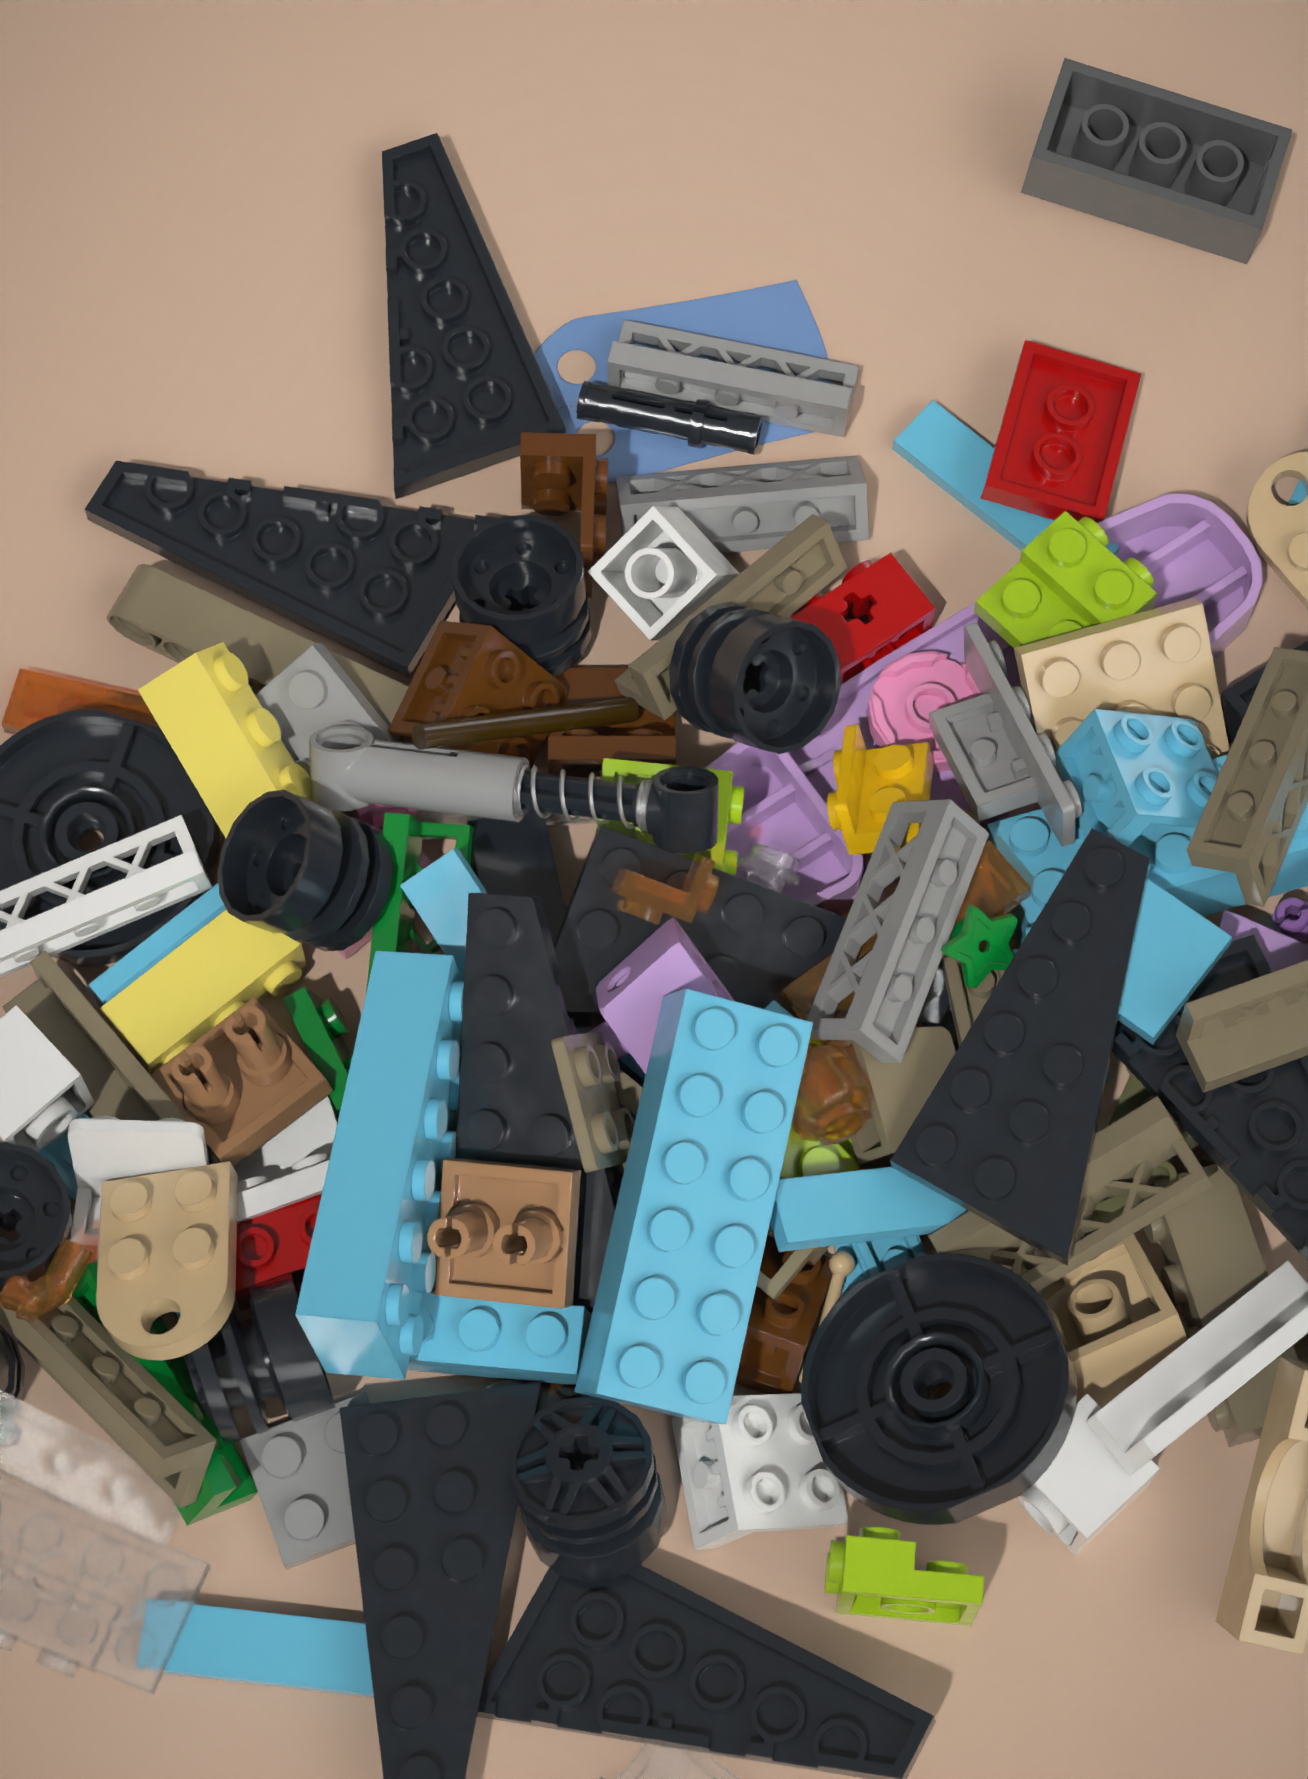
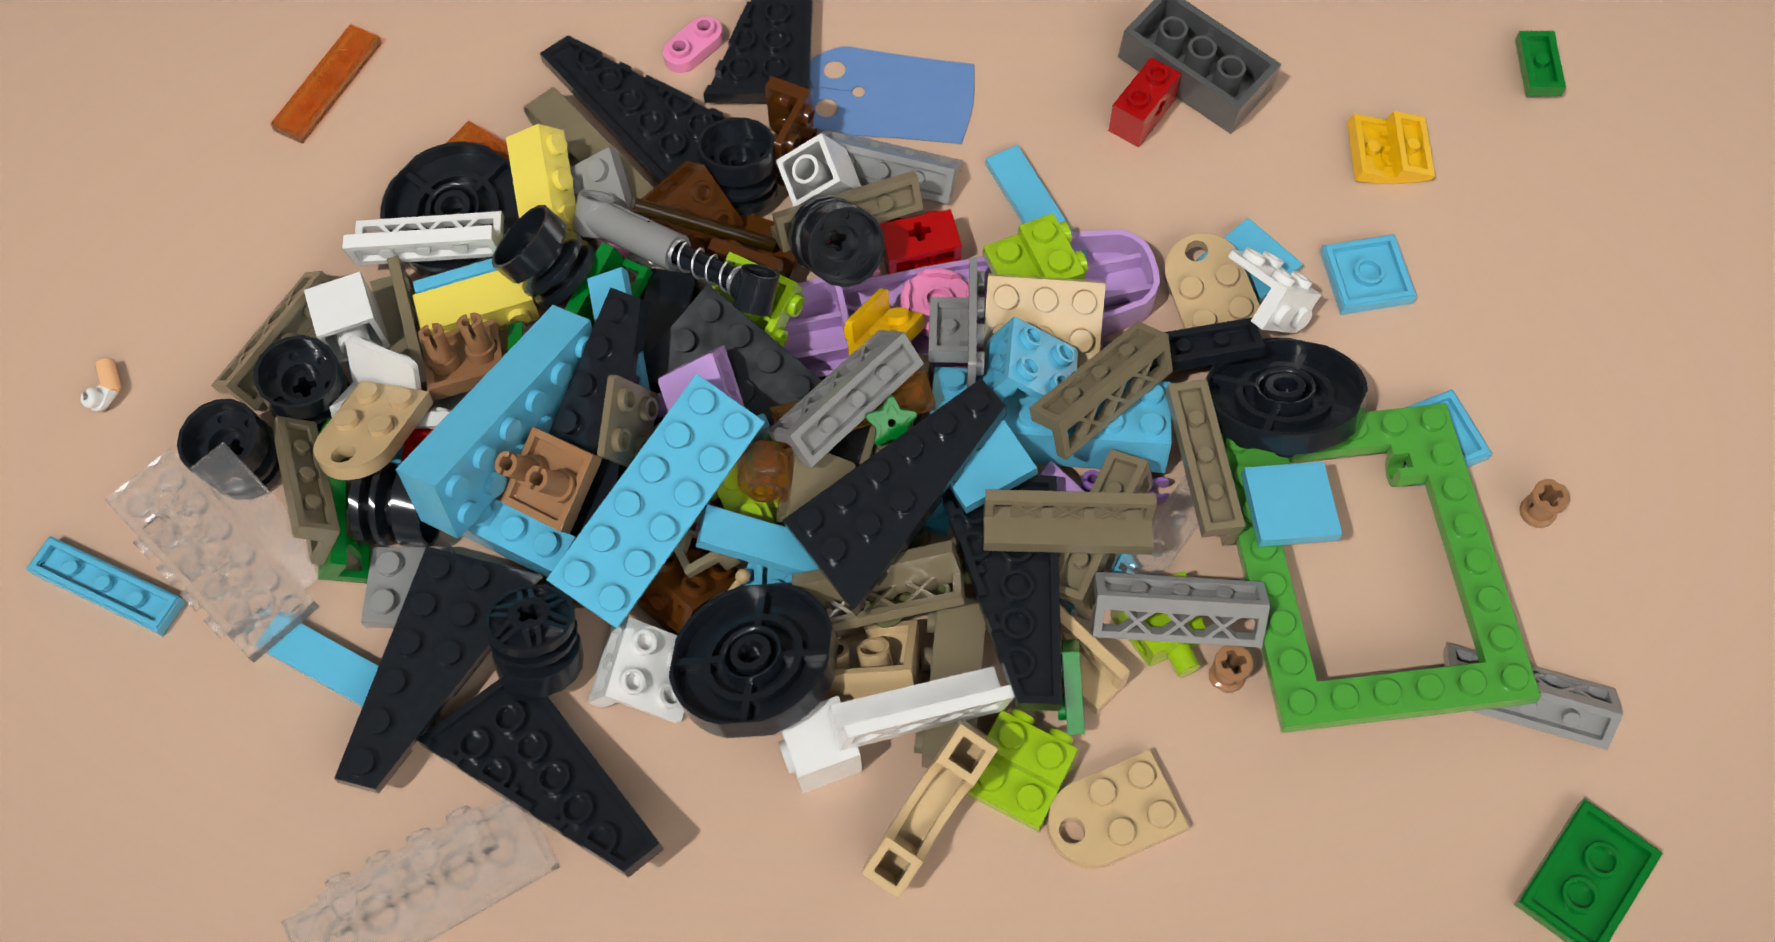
camera: 25 degrees right, 5 degrees down
(53, 1289) = (305, 423): clear orange arm -> none
(328, 398) = (698, 42): none -> bright pink plate
(651, 898) = (714, 329): clear orange bracket -> none
(683, 420) = (879, 113): black pin -> none
(731, 386) = (912, 99): light grey fence -> none
(770, 867) = (801, 346): clear plate -> none
(878, 1579) = (675, 757): lime plate -> none
(1061, 434) = (1079, 182): red plate -> none
(1102, 260) = (1144, 102): none -> red brick

